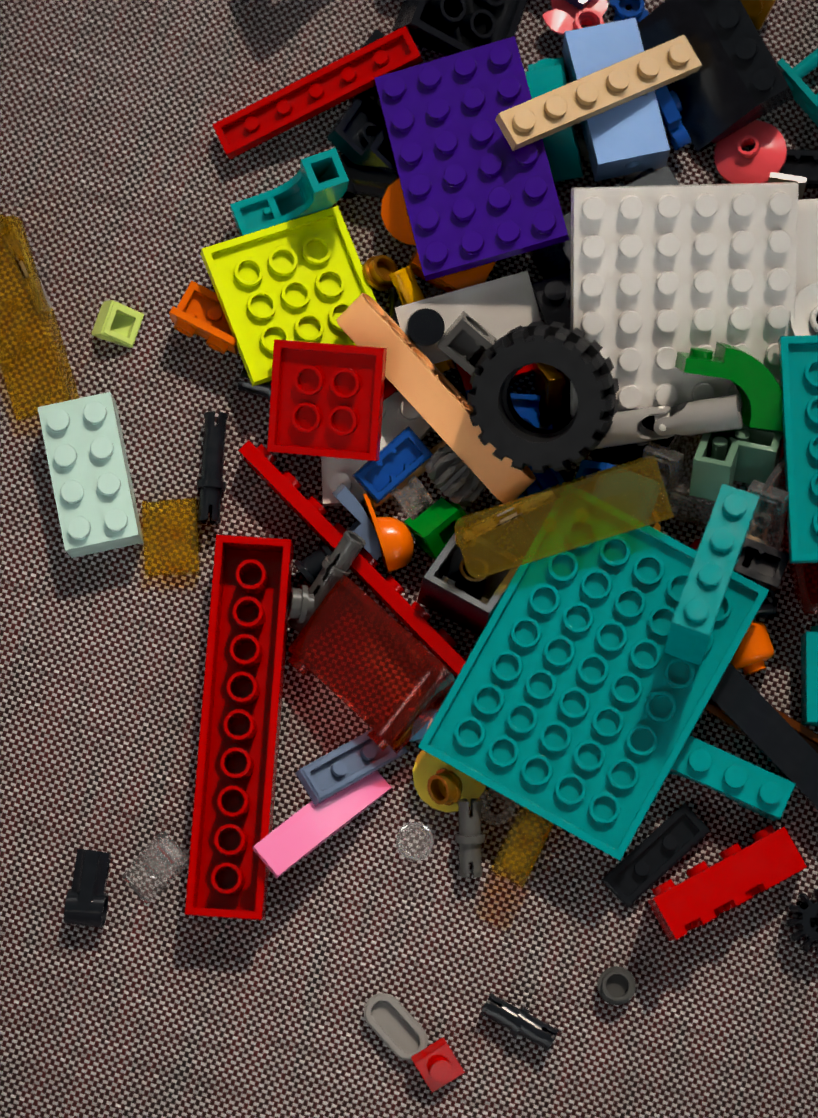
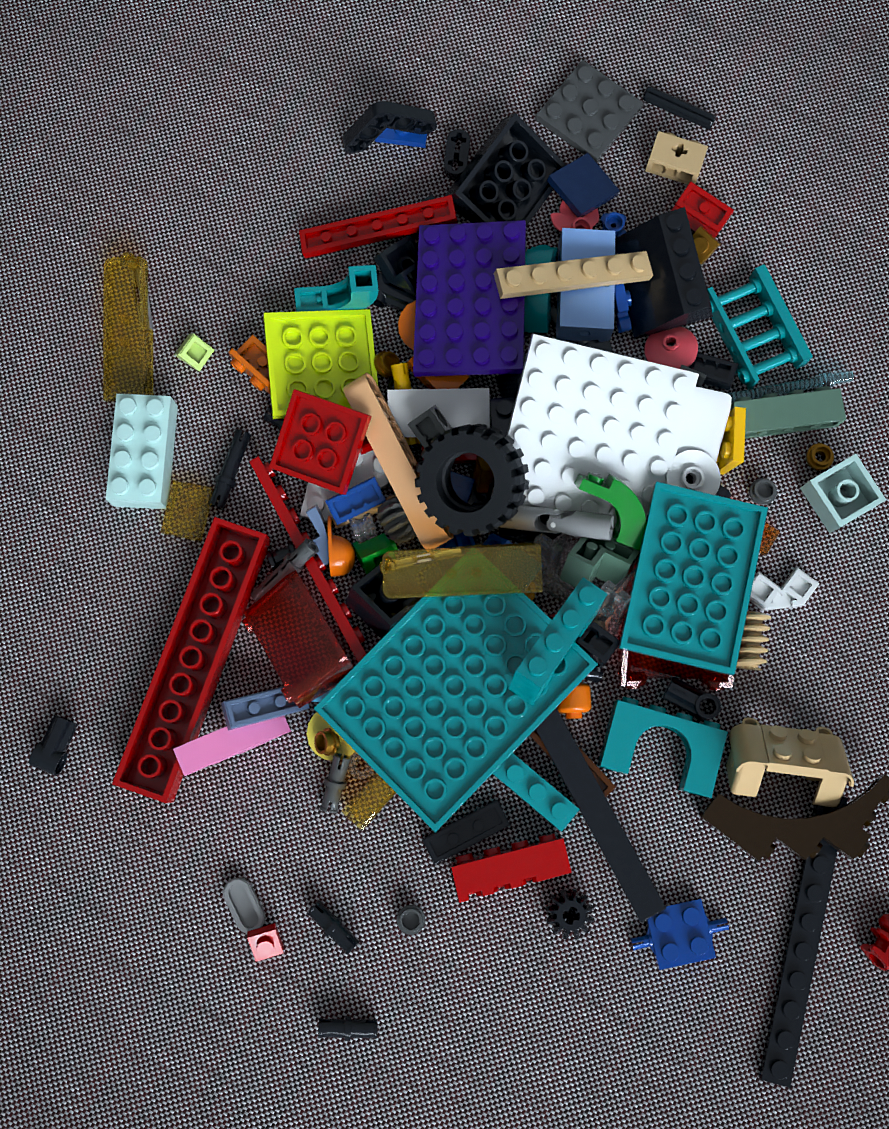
camera: 10 degrees right, 0 degrees up
(156, 867) = (106, 742): clear slope -> none
(300, 603) = (260, 582): dark grey plate -> none
(409, 834) = (291, 774): clear wheel -> none
(425, 327) = (405, 409): black tile -> none

